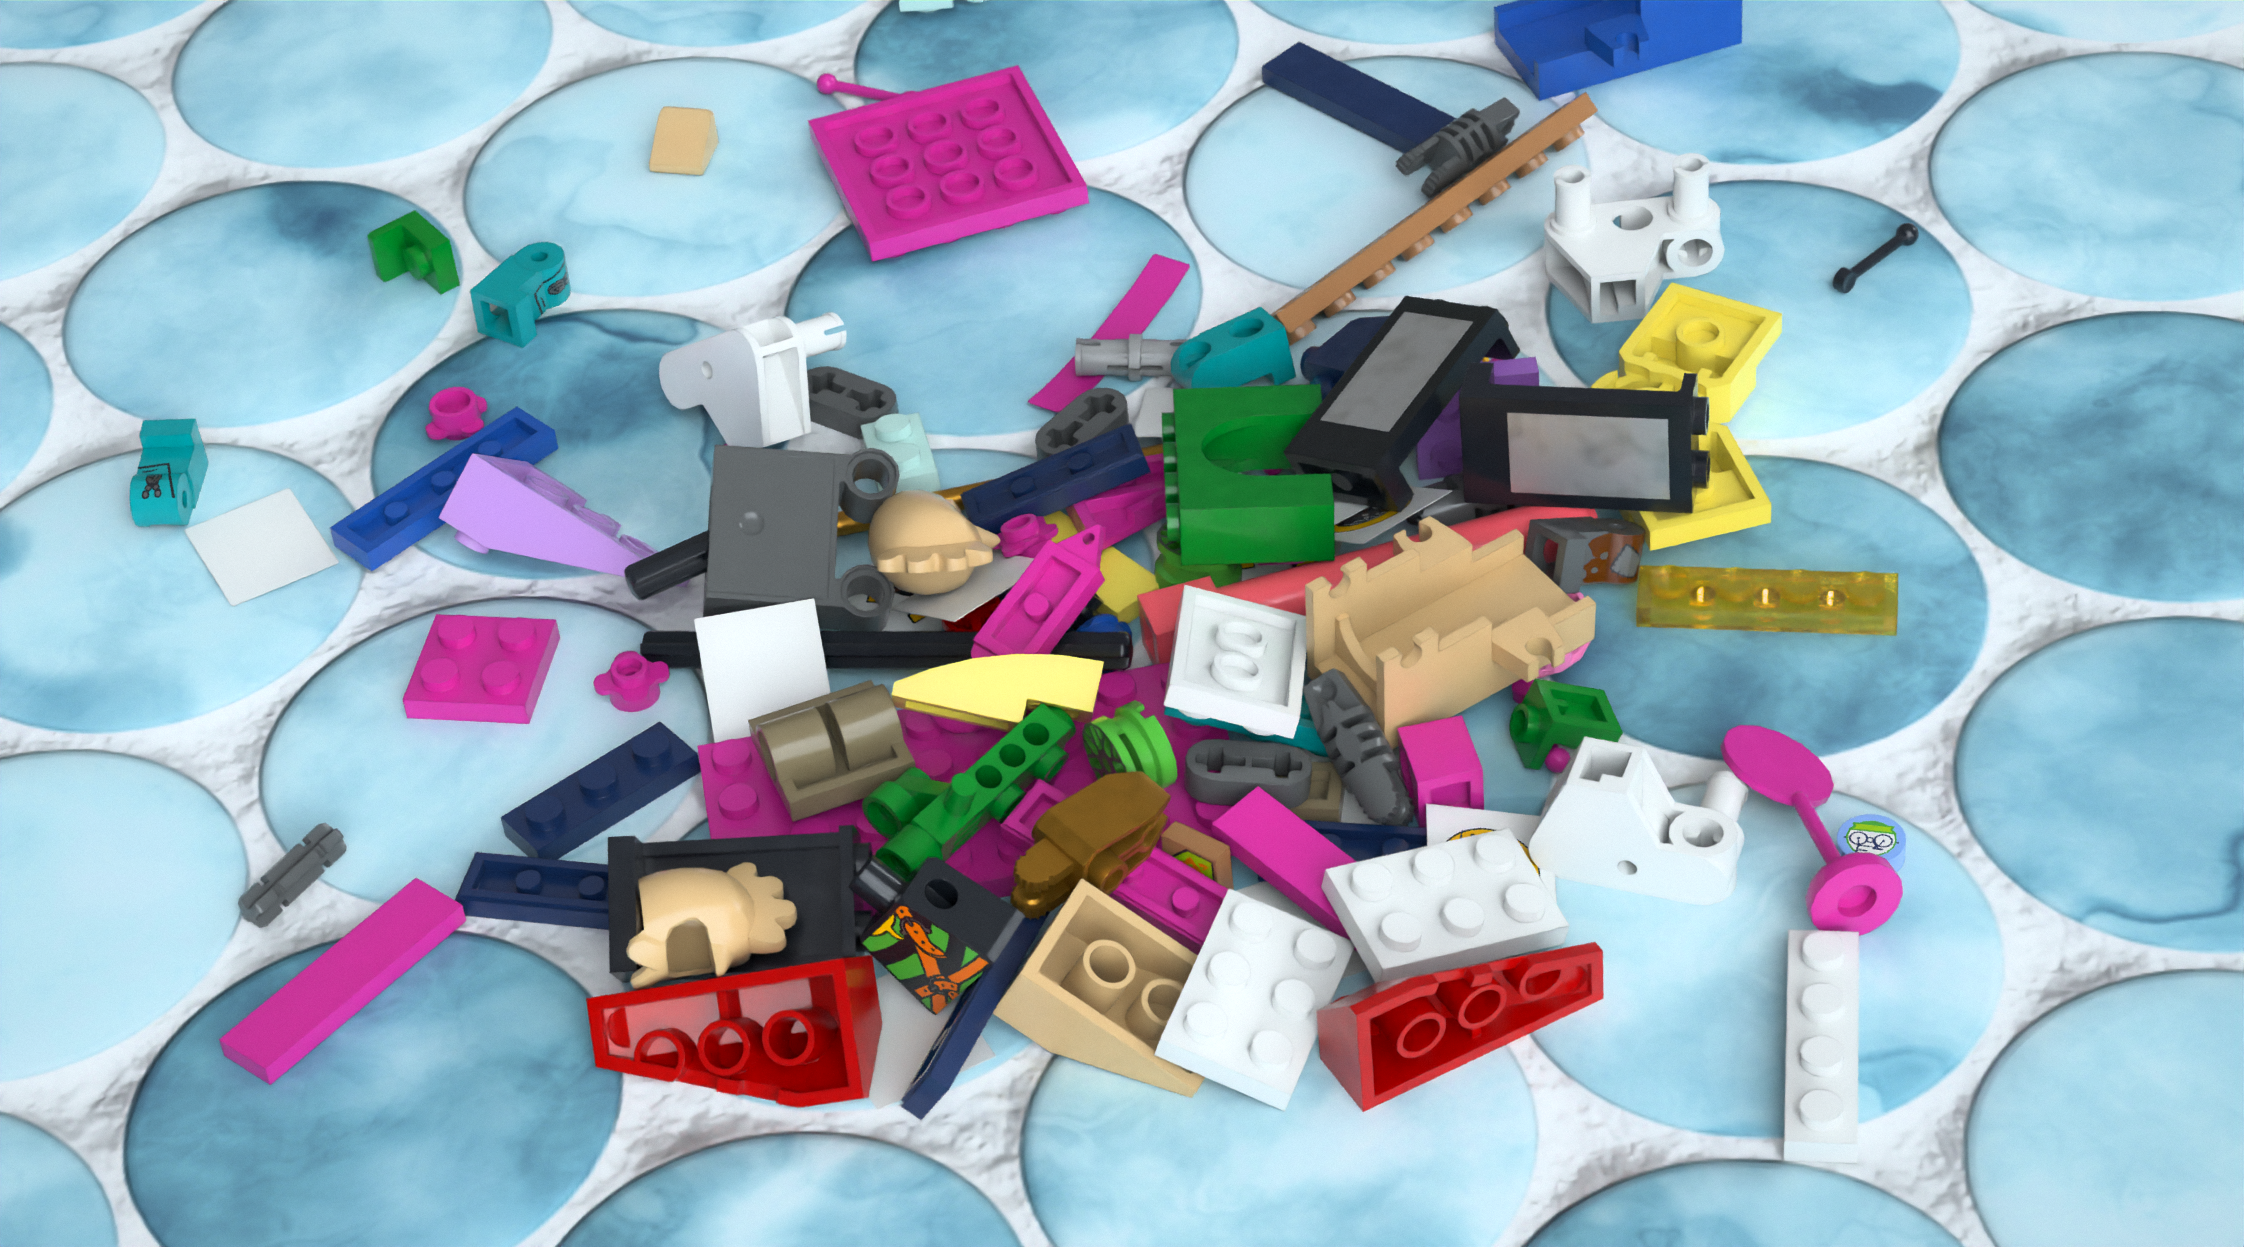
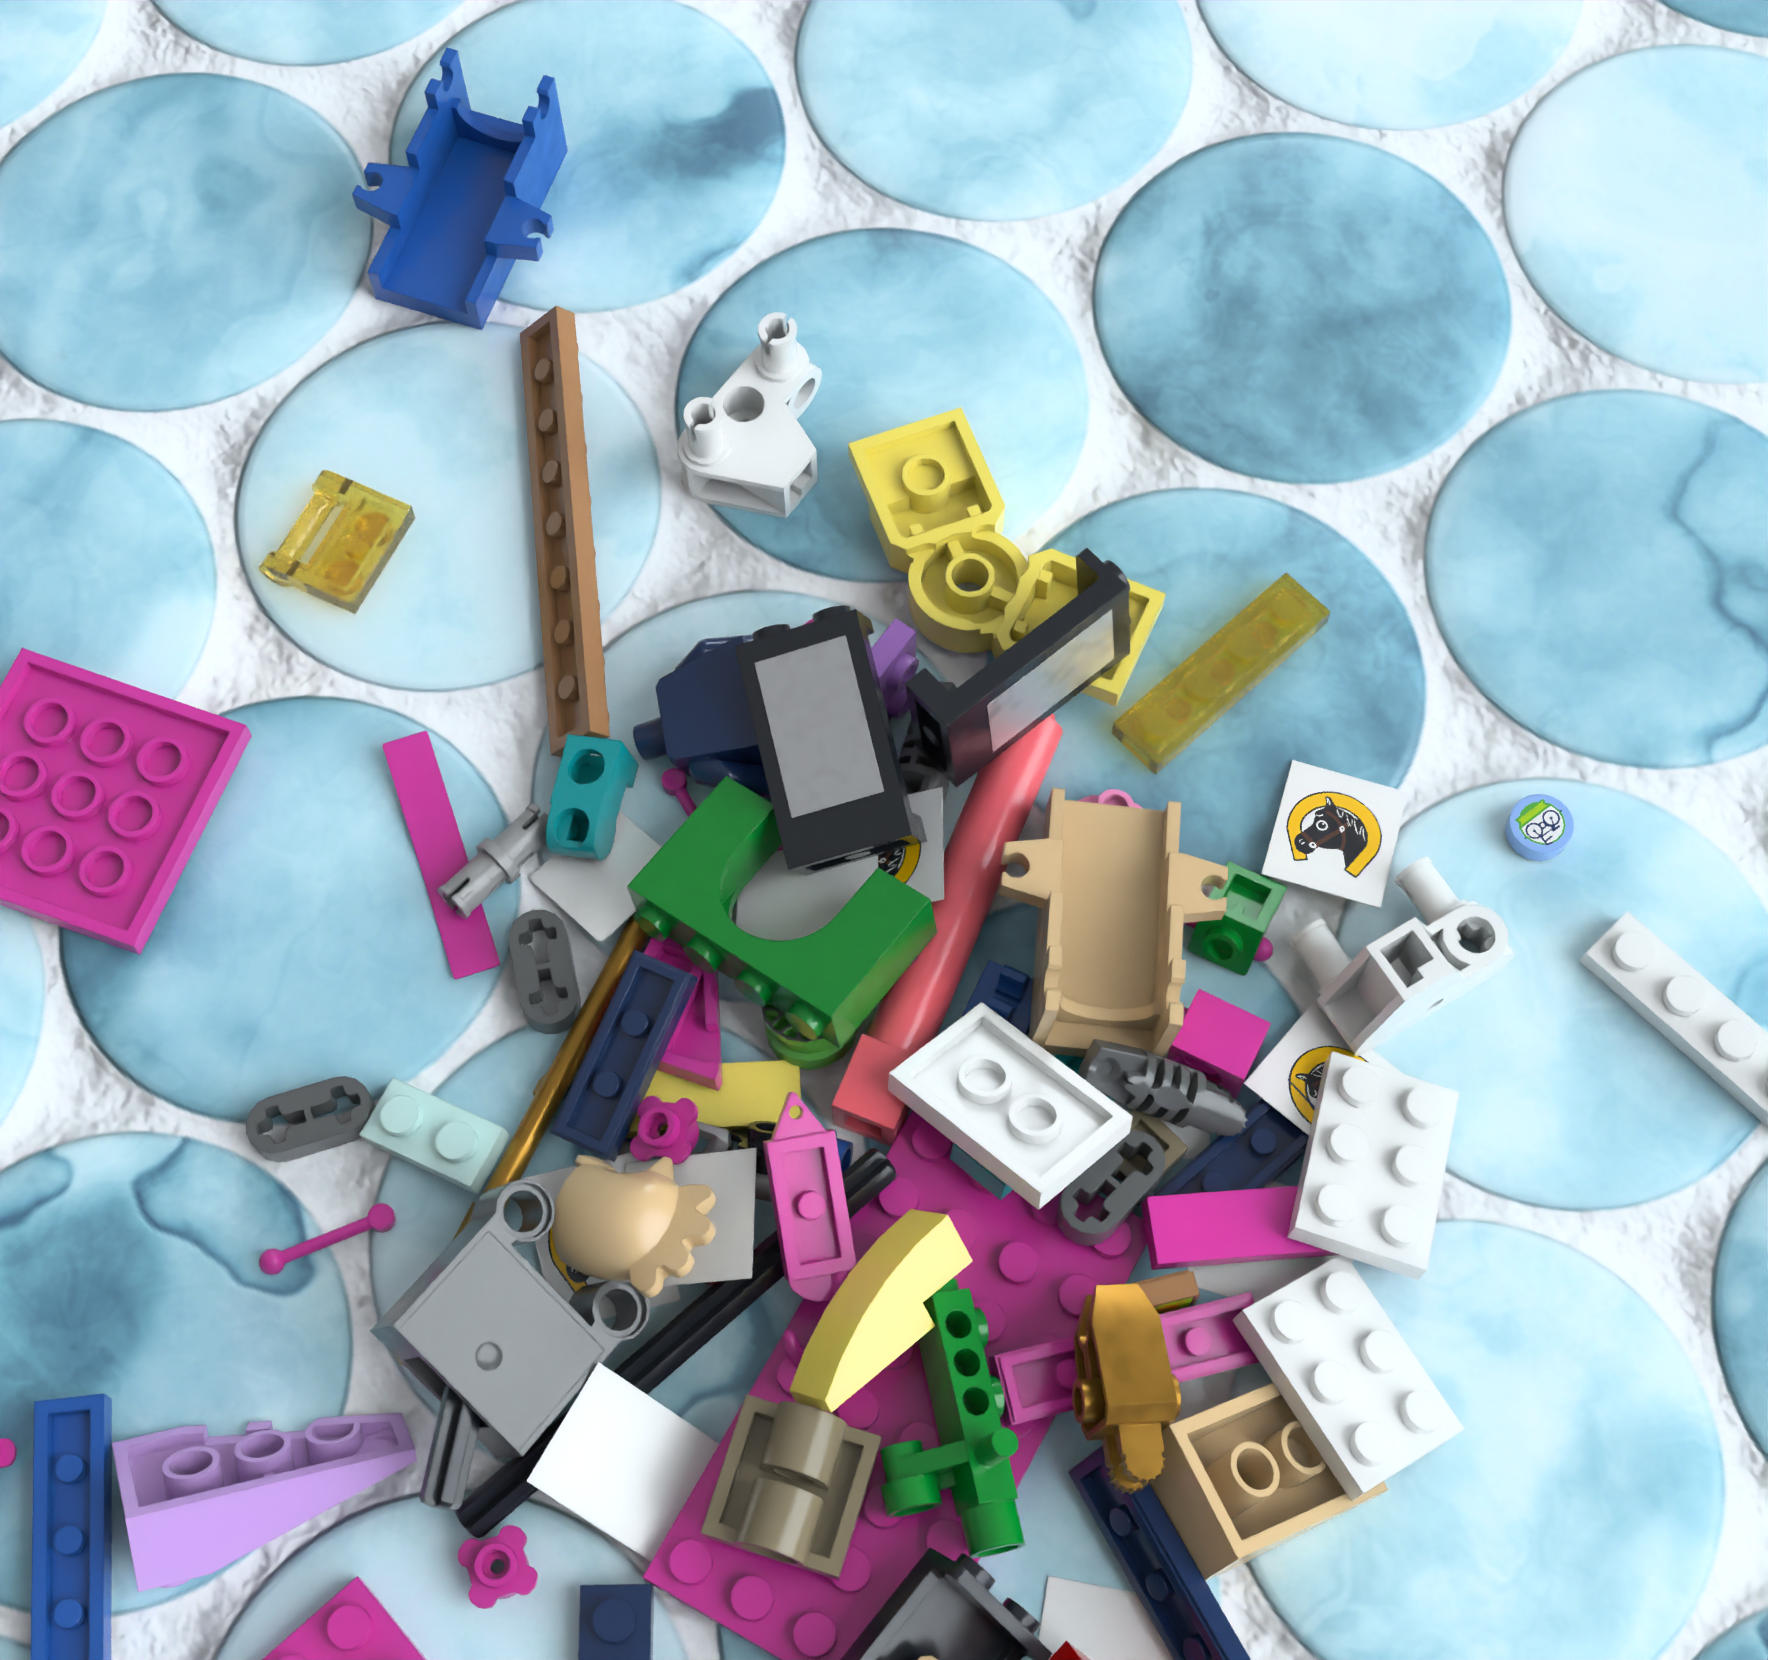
camera: 55 degrees left, 25 degrees up
(751, 377) = (262, 1202): white piece -> none
(933, 927) = (1080, 1594): black torso -> none
(1129, 745) = (1035, 1266): bright green wheel -> none
(1280, 141) = (351, 551): none -> clear yellow plate
(1353, 97) = (351, 446): dark blue tile -> none
(1439, 1020) = (1485, 1293): red wedge -> none
(1460, 145) = (497, 430): dark grey hinge -> none
(1587, 550) = (1084, 750): dark grey leg -> none
(1688, 732) = (1335, 834): none -> sticker
(1845, 278) = (913, 247): black hinge -> none
(1852, 889) = (1435, 826): dark pink piece -> none

